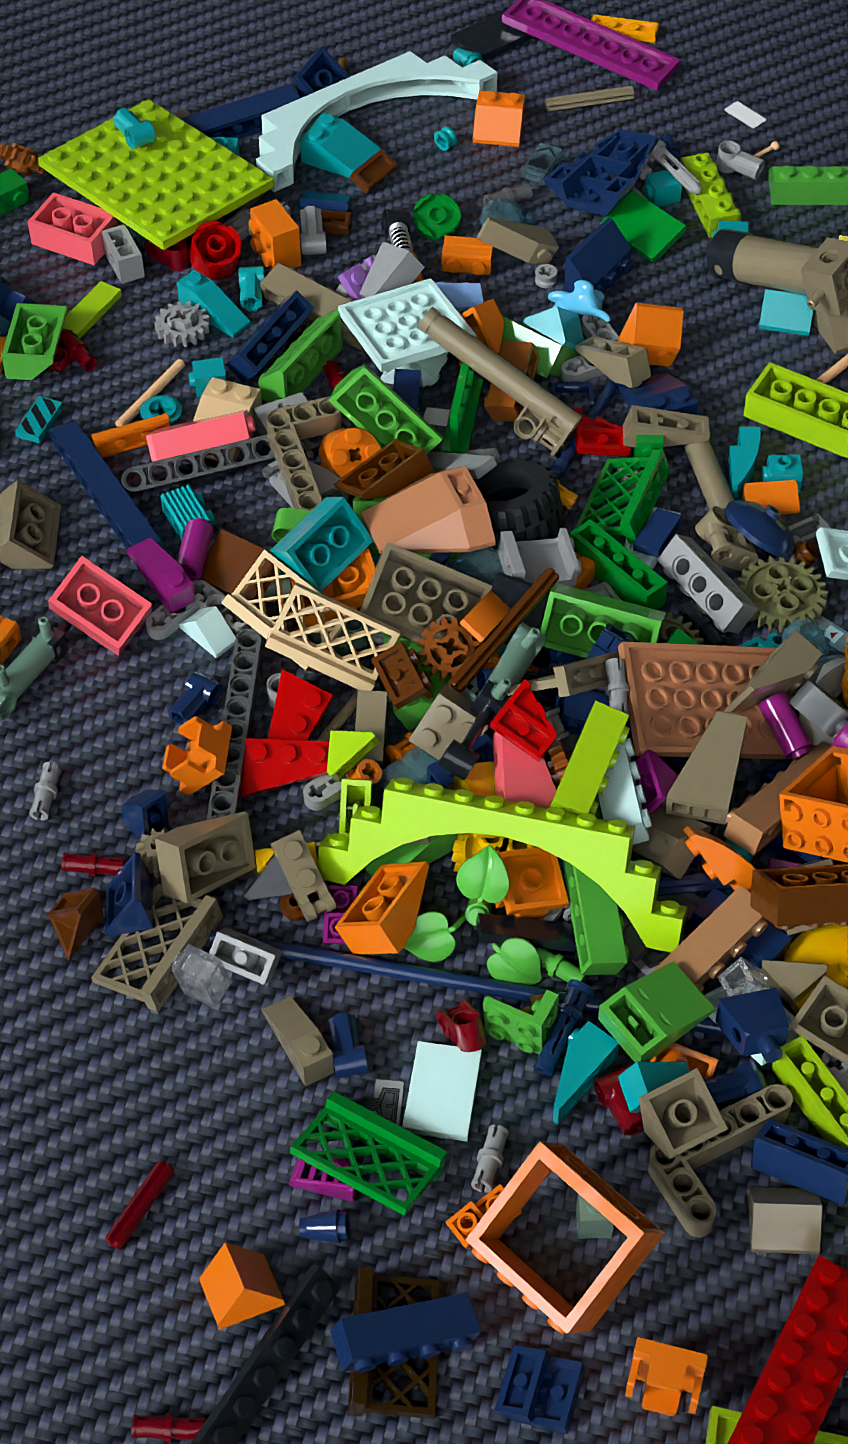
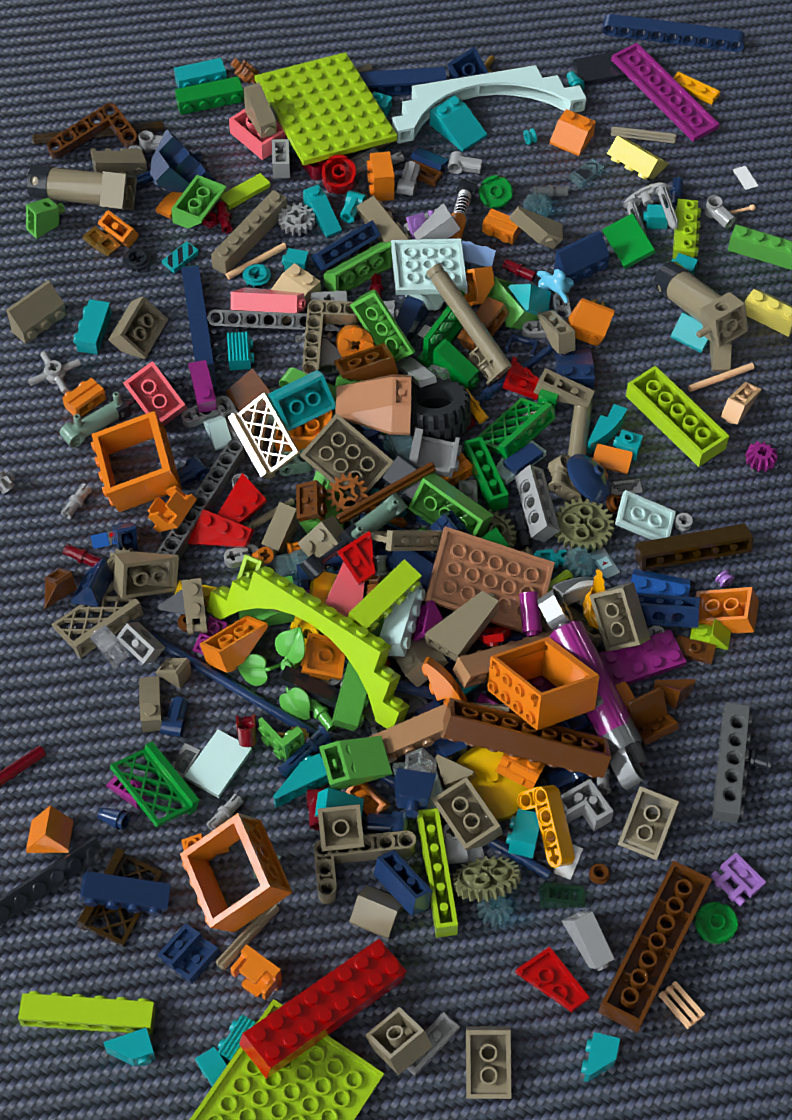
camera: 20 degrees right, 5 degrees up
(70, 196) = (259, 111): none -> dark tan slope
(88, 669) = (144, 487): none -> orange window
(110, 832) = (102, 539): none -> blue sticker
(124, 360) = (248, 233): none -> dark tan brick
(127, 436) = (226, 286): orange tile -> none
(135, 131) = (322, 75): teal piece -> none
(195, 547) = (230, 376): magenta brick -> none
(312, 979) = (175, 671): none -> dark tan slope
(317, 656) = (272, 472): tan fence -> none
(347, 750) = (256, 538): lime slope -> none
(369, 195) = (460, 163): none -> light grey piece
(373, 171) = (472, 145): reddish brown tile -> none
(485, 616) = (377, 480): orange slope -> none
(491, 432) = (459, 367): none -> green slope
(519, 302) = (519, 270): none -> dark red axle
(546, 276) = (547, 252): light grey bush -> none
(593, 123) = (636, 158): none -> light yellow slope
(605, 174) = (617, 196): dark blue wedge -> none
(612, 1336) = (246, 937): none -> dark tan axle
(617, 686) = (429, 555): light grey pin -> none
(753, 772) = (494, 635): none -> red wing
(781, 671) = (538, 579): dark tan slope -> none

